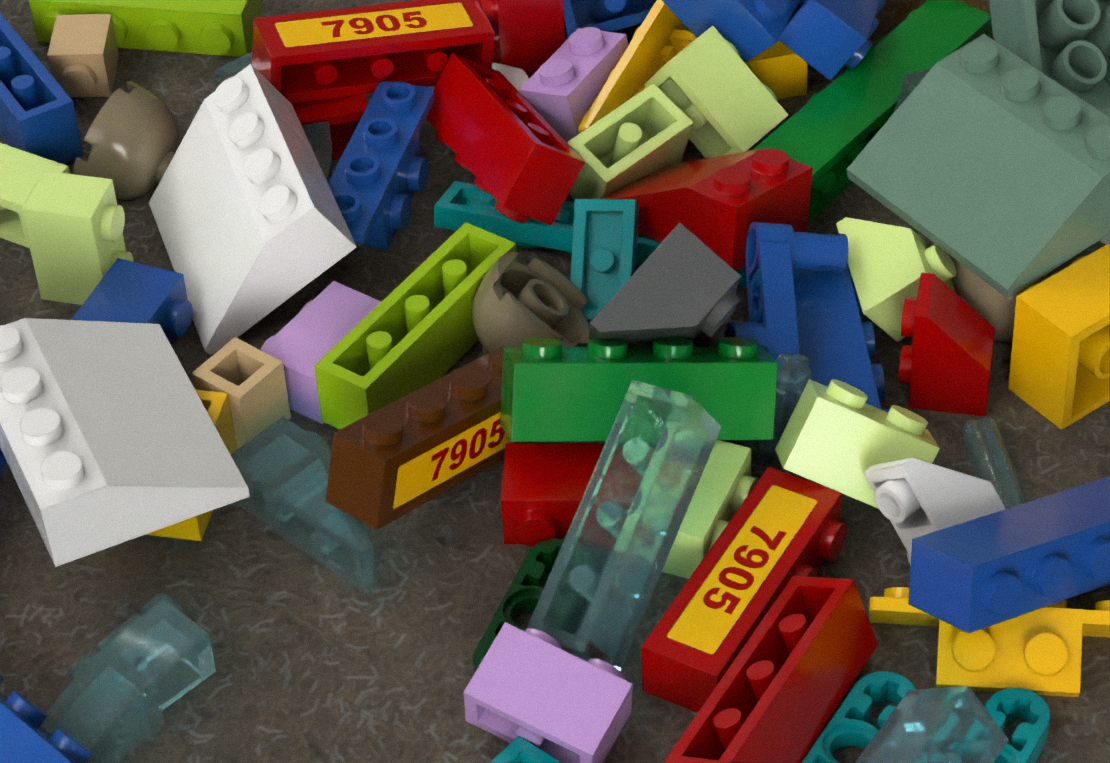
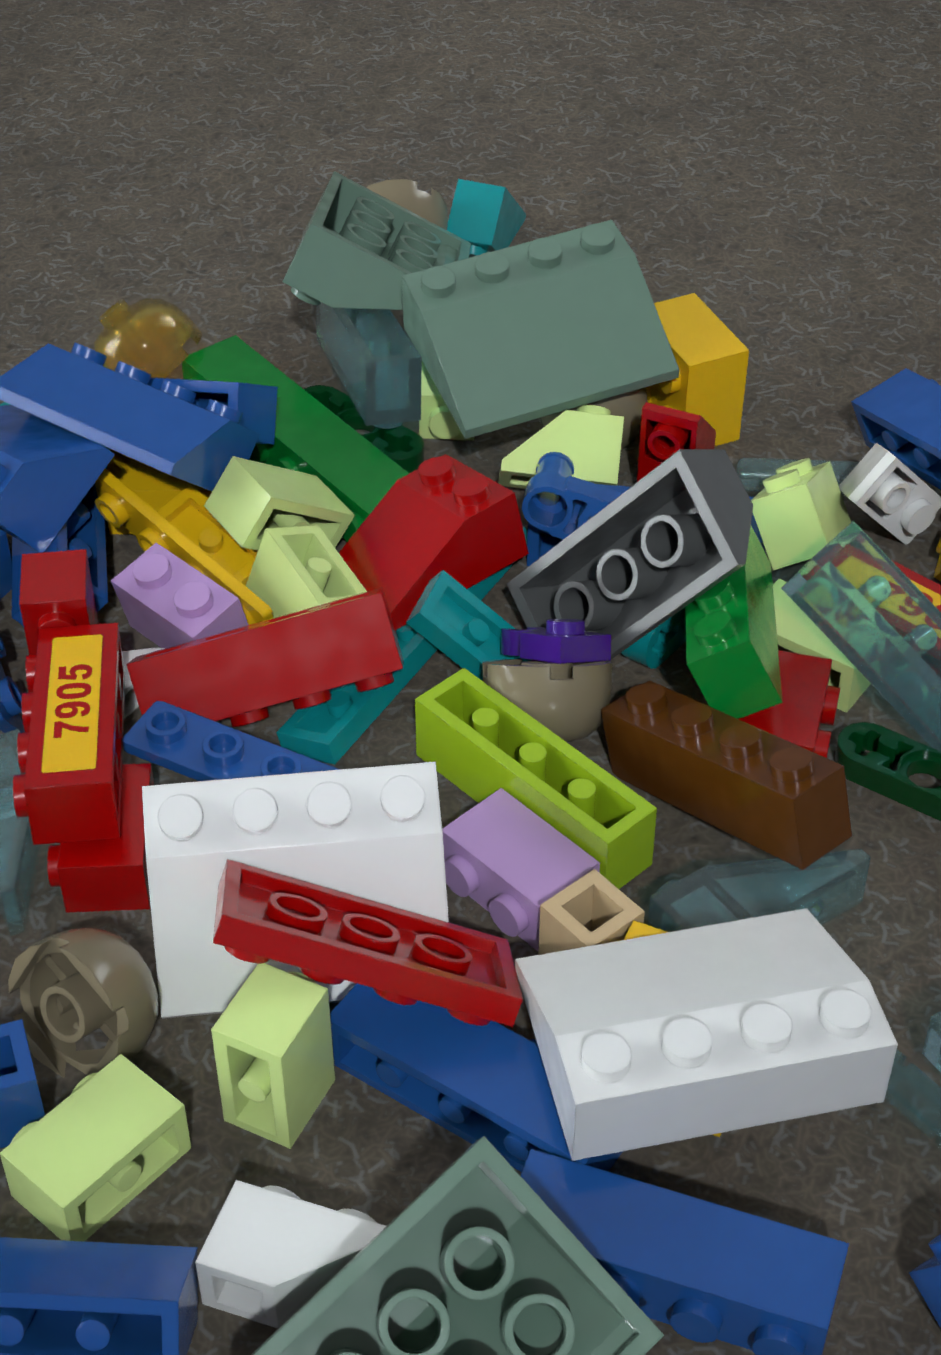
camera: 80 degrees left, 0 degrees up
(159, 234) = (366, 943): none -> red plate
(574, 300) = (557, 643): none -> dark purple plate

